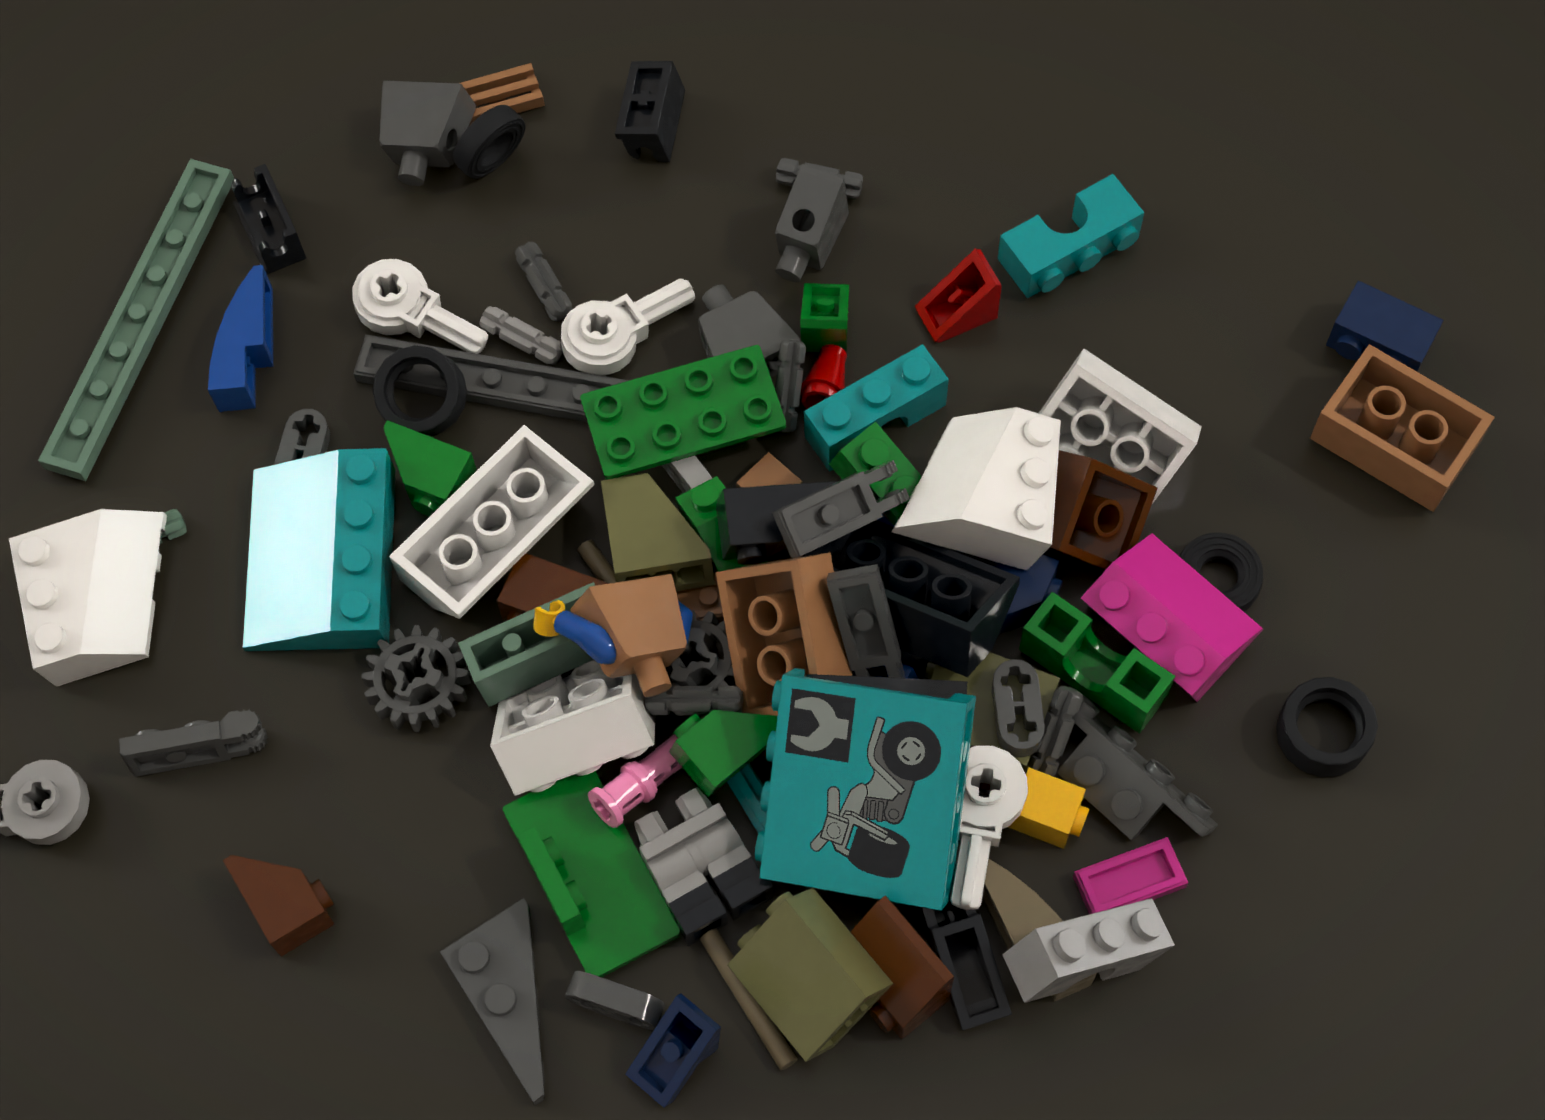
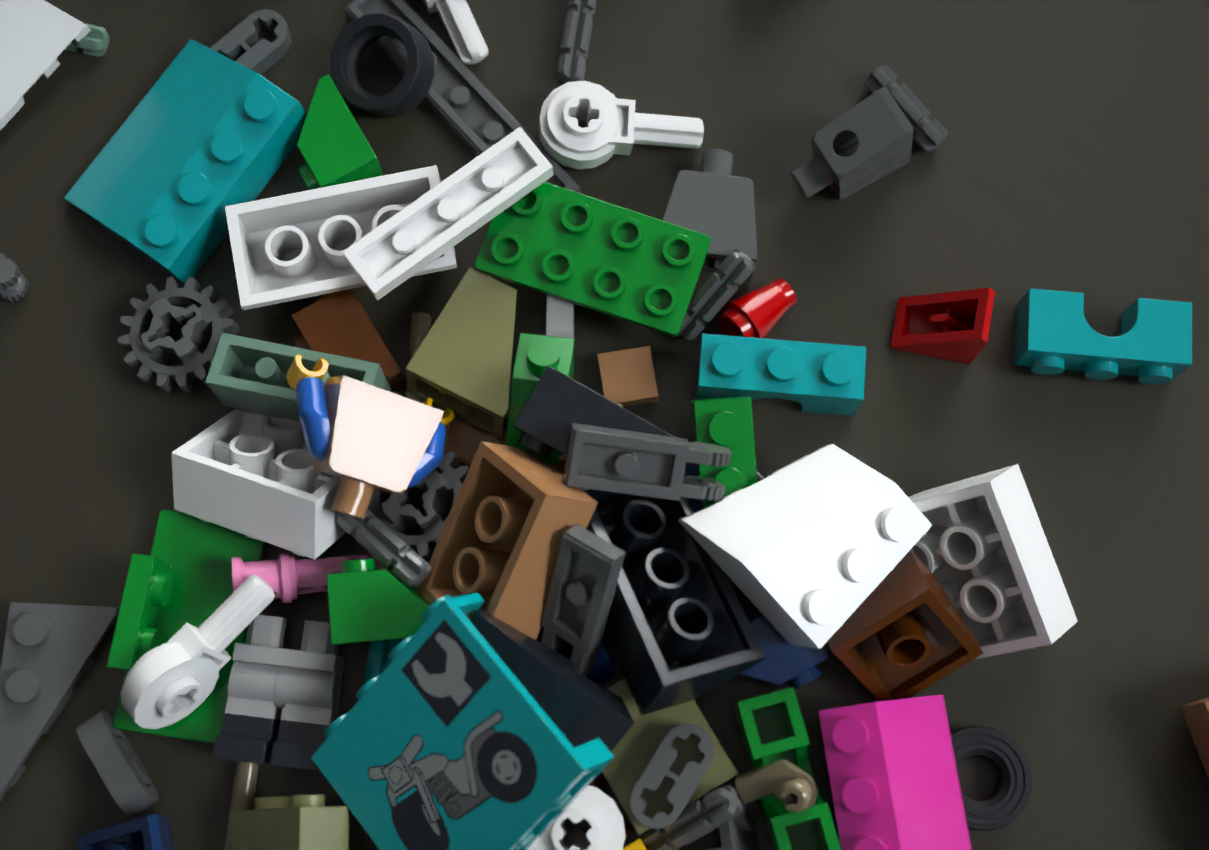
camera: 35 degrees right, 10 degrees up
(521, 335) = (516, 73): light grey axle -> none
(563, 447) = (448, 213): none -> white plate
(615, 895) = (183, 672): none -> white piece
(824, 315) = (803, 248): green slope -> none
(1093, 657) = (783, 781): none -> dark tan arm

